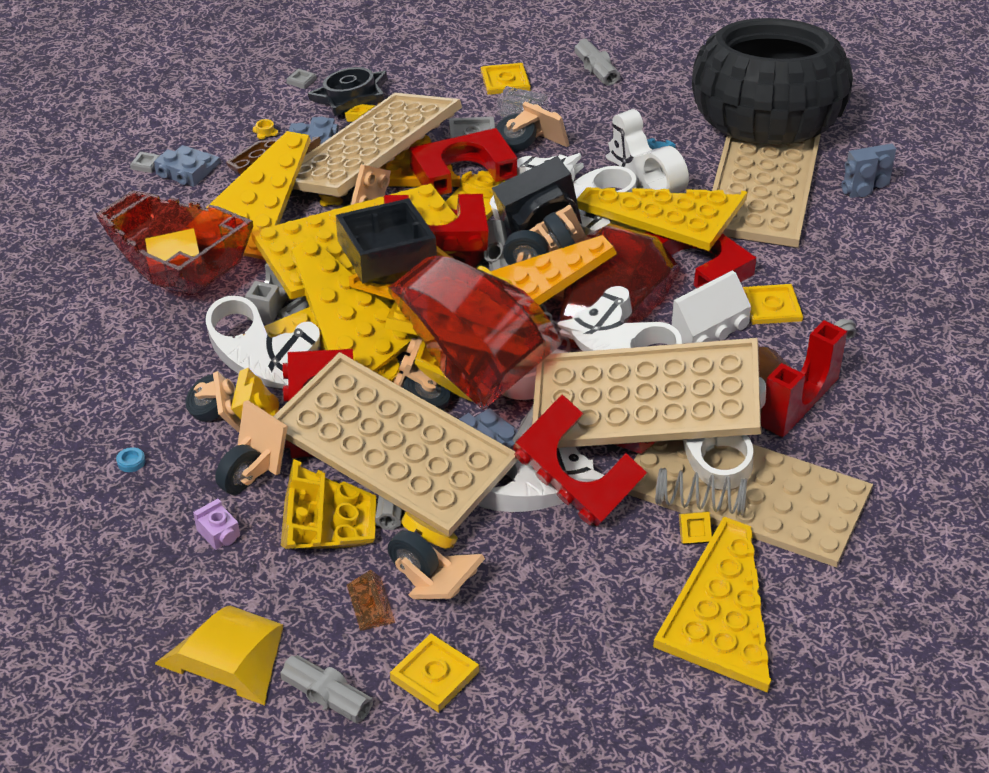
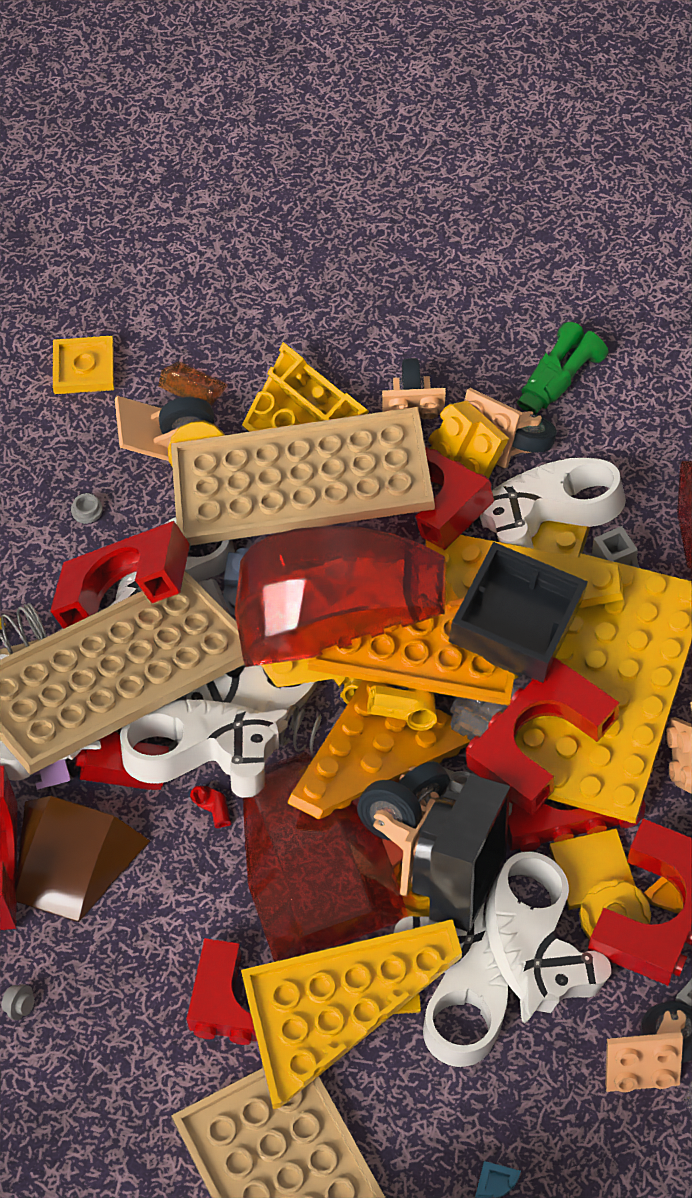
camera: 140 degrees right, 15 degrees up
(130, 459) = (522, 349): dark azure tile -> none
(138, 424) = (551, 380): none -> green piece
(216, 524) = (374, 344): lavender brick -> none
(230, 650) = (248, 273): yellow wedge -> none
(327, 688) = (147, 298): light grey piece -> none
(543, 563) = (86, 508): none -> light grey plate
(653, 168) = (439, 1077): white animal -> none
(712, 310) = (167, 889): white slope -> none
(773, 304) = (130, 991): yellow tile -> none

